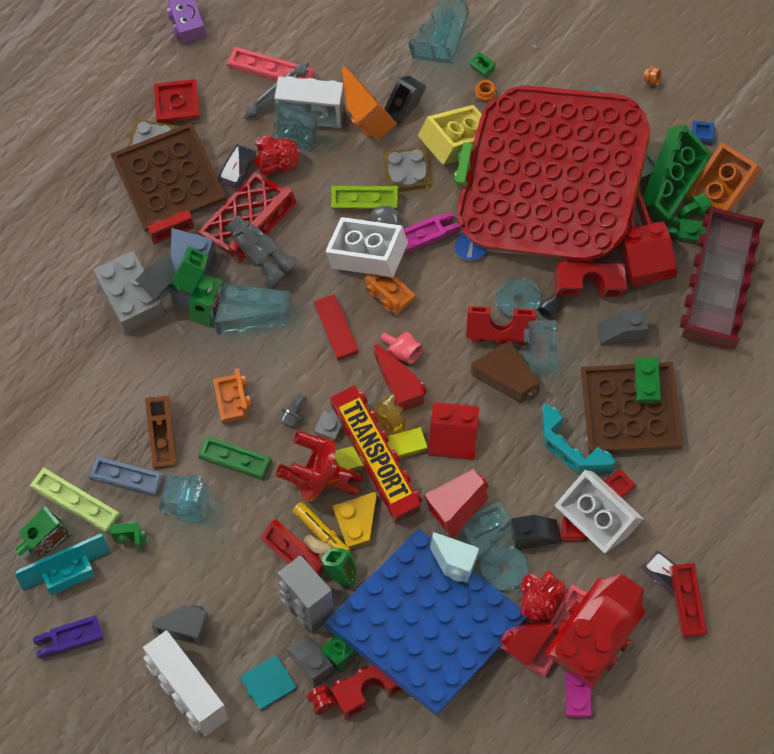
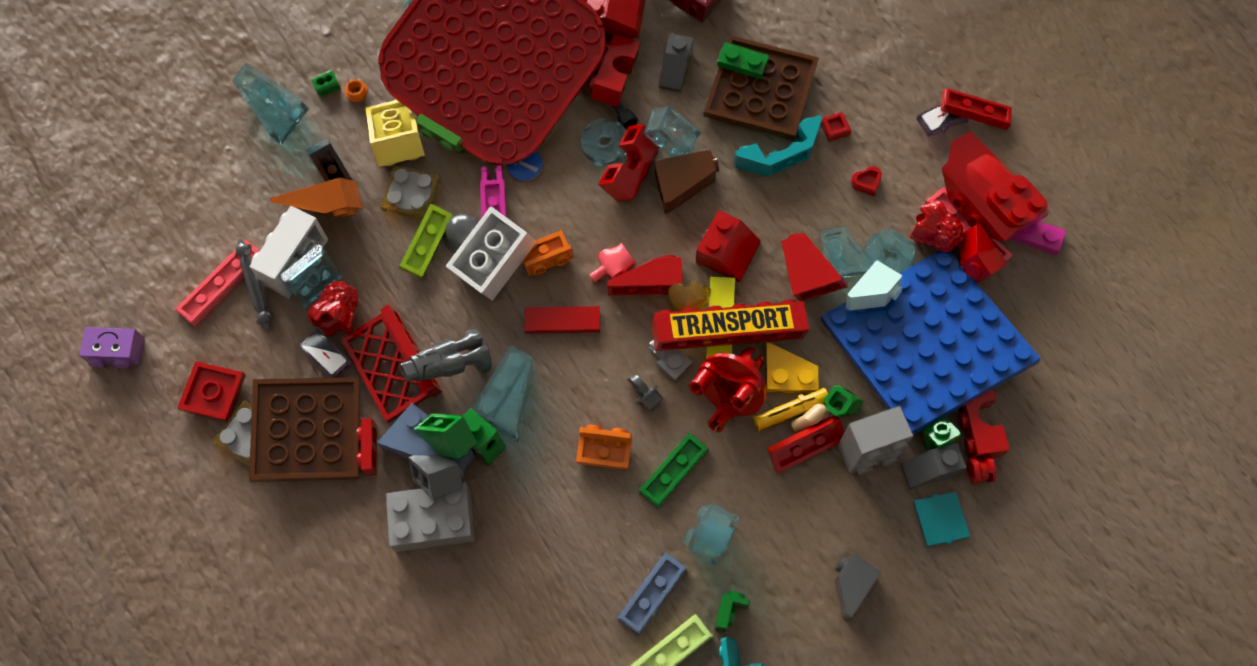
camera: 70 degrees left, 5 degrees up
(160, 430) = (612, 535): dark orange slope -> none
(185, 683) = (934, 600): white brick -> none
(534, 531) = (862, 215): black slope -> none
(598, 511) = (863, 149): white slope -> none

